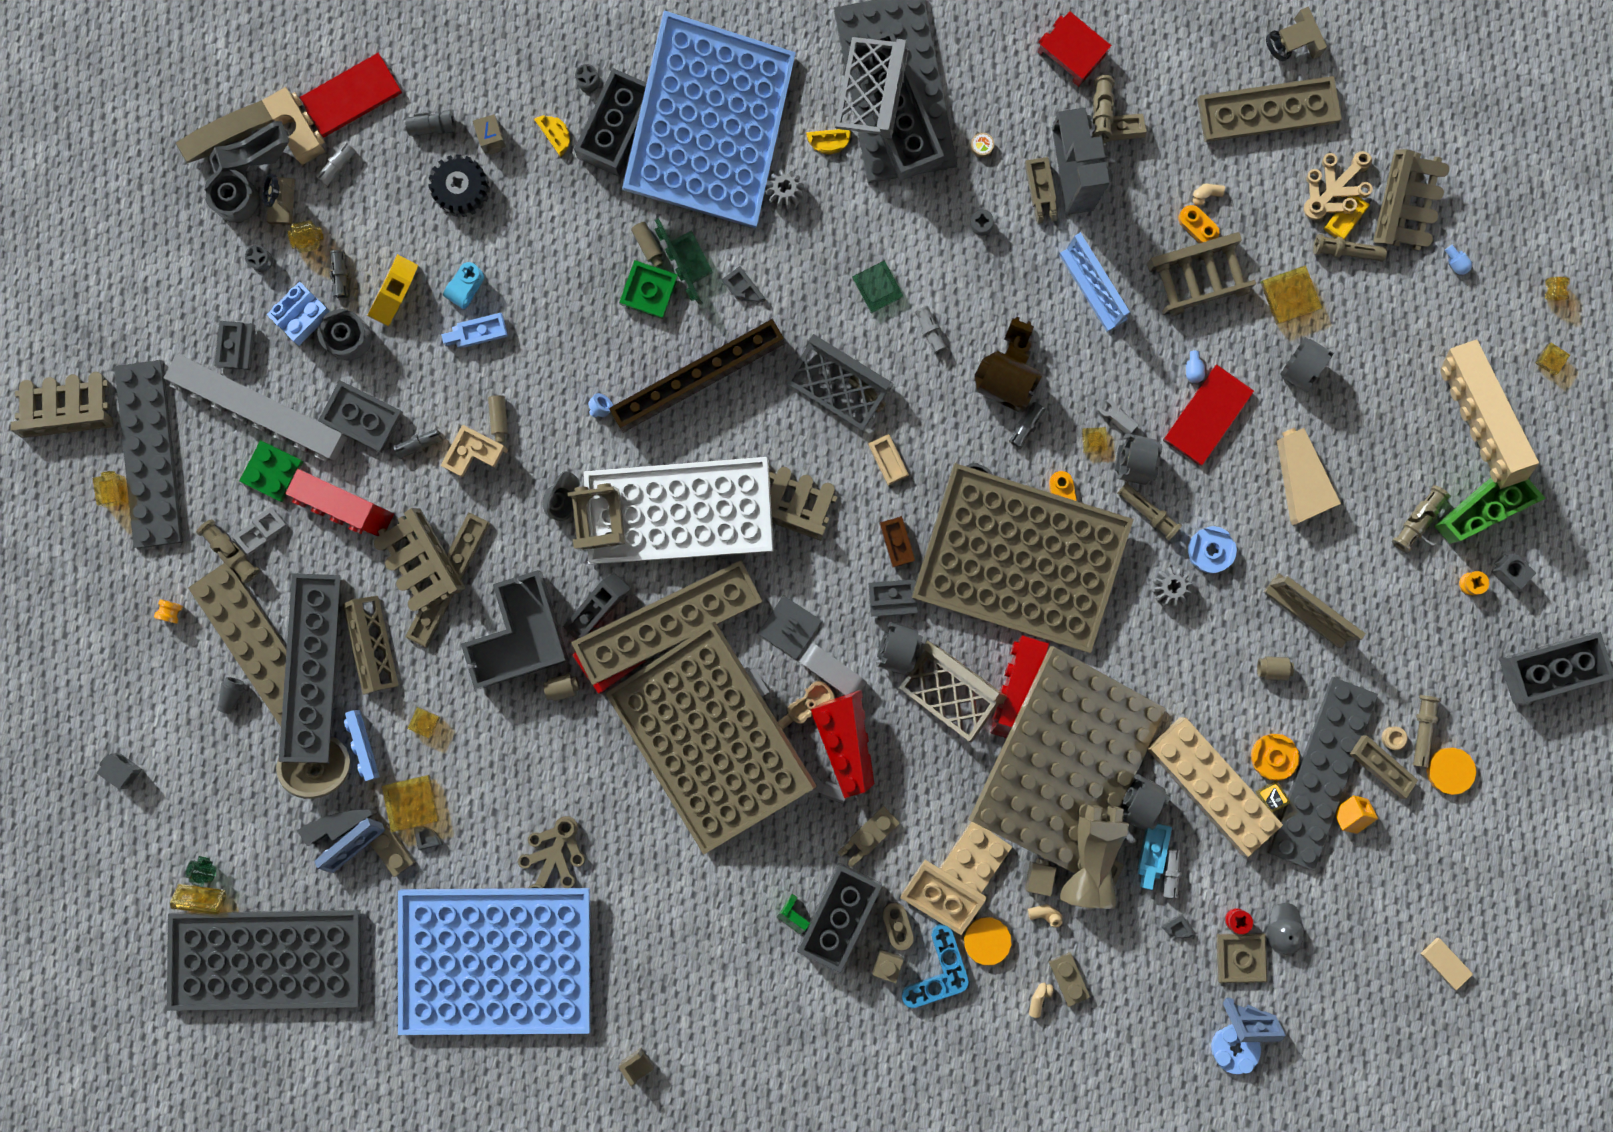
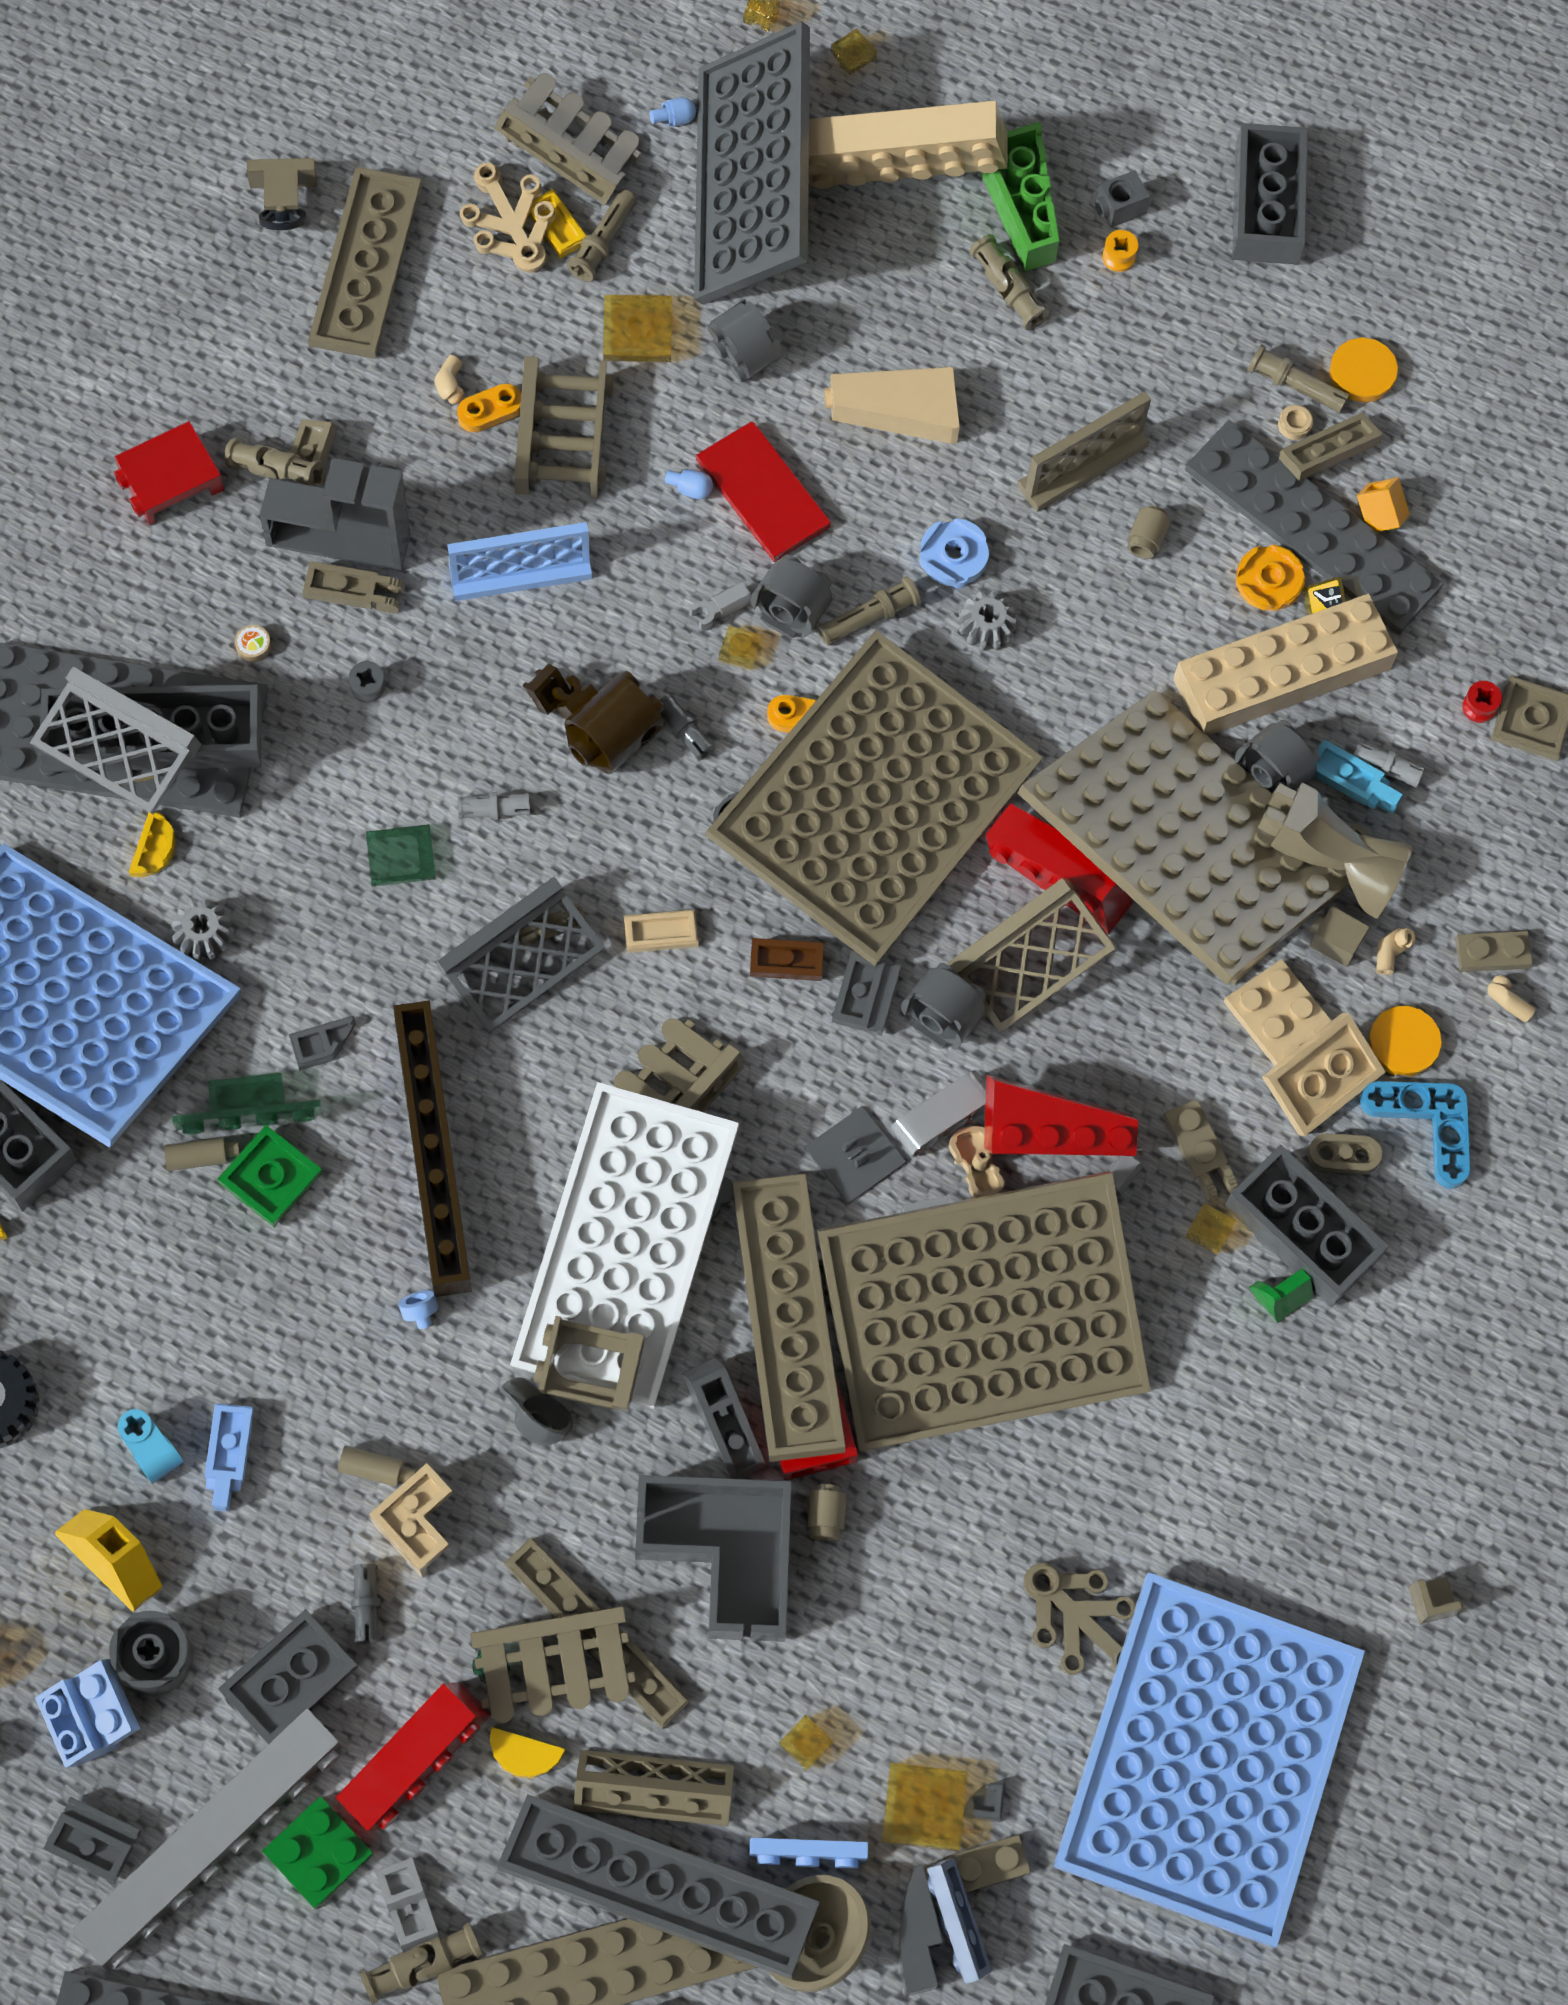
camera: 75 degrees left, 15 degrees down
(339, 274) = (46, 1635): dark grey pin -> none
(363, 564) = (523, 1755): none -> yellow tile
(819, 858) = (1210, 1228): none -> clear yellow plate
(887, 965) = (1397, 1185): dark tan brick -> none
(1178, 927) = (1465, 783): dark grey tile -> none
(1285, 922) = (1505, 649): dark grey cap -> none
(1436, 323) = (752, 164): none -> dark grey plate

